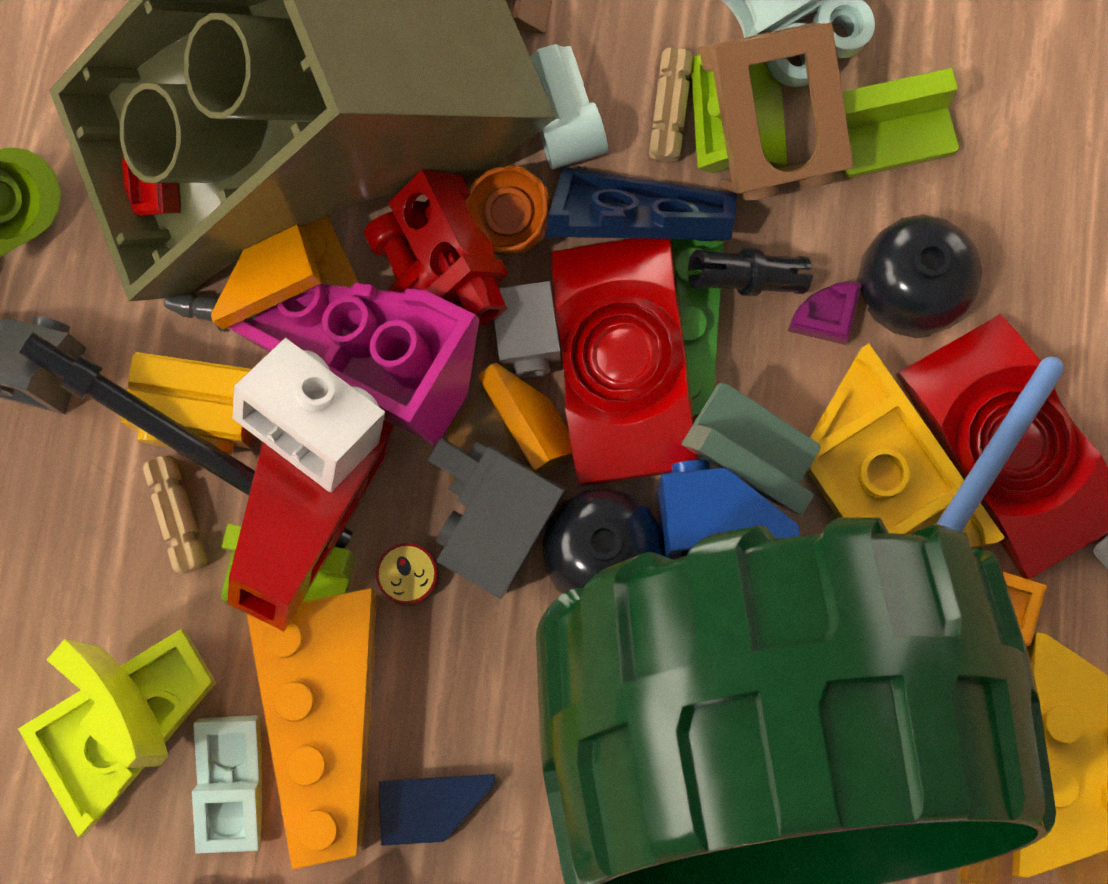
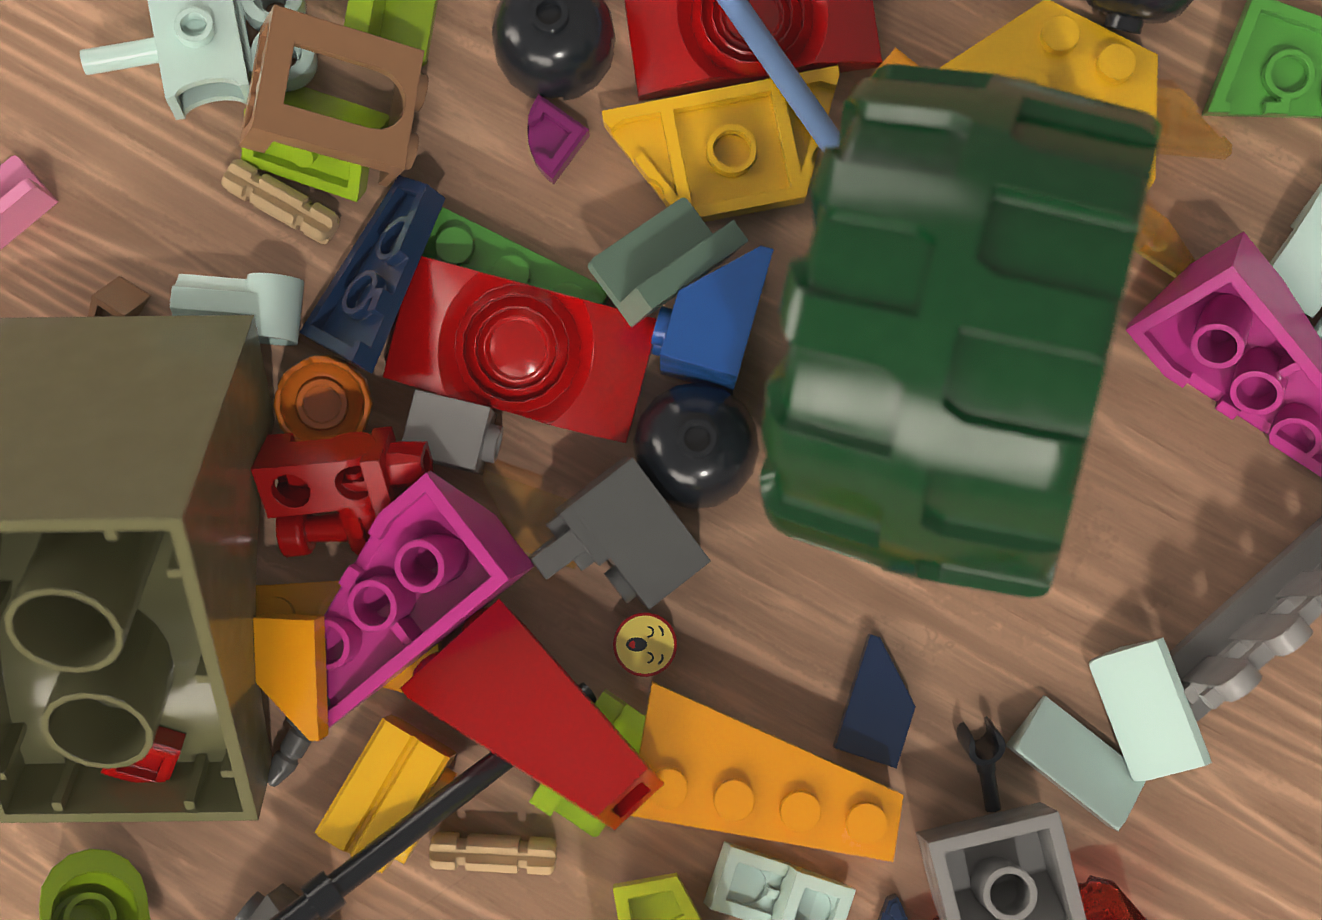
camera: 70 degrees left, 5 degrees up
(308, 414) = (458, 677): white brick -> none
(528, 417) = (540, 465): light orange tile -> none
(750, 272) = (485, 193): black pin -> none

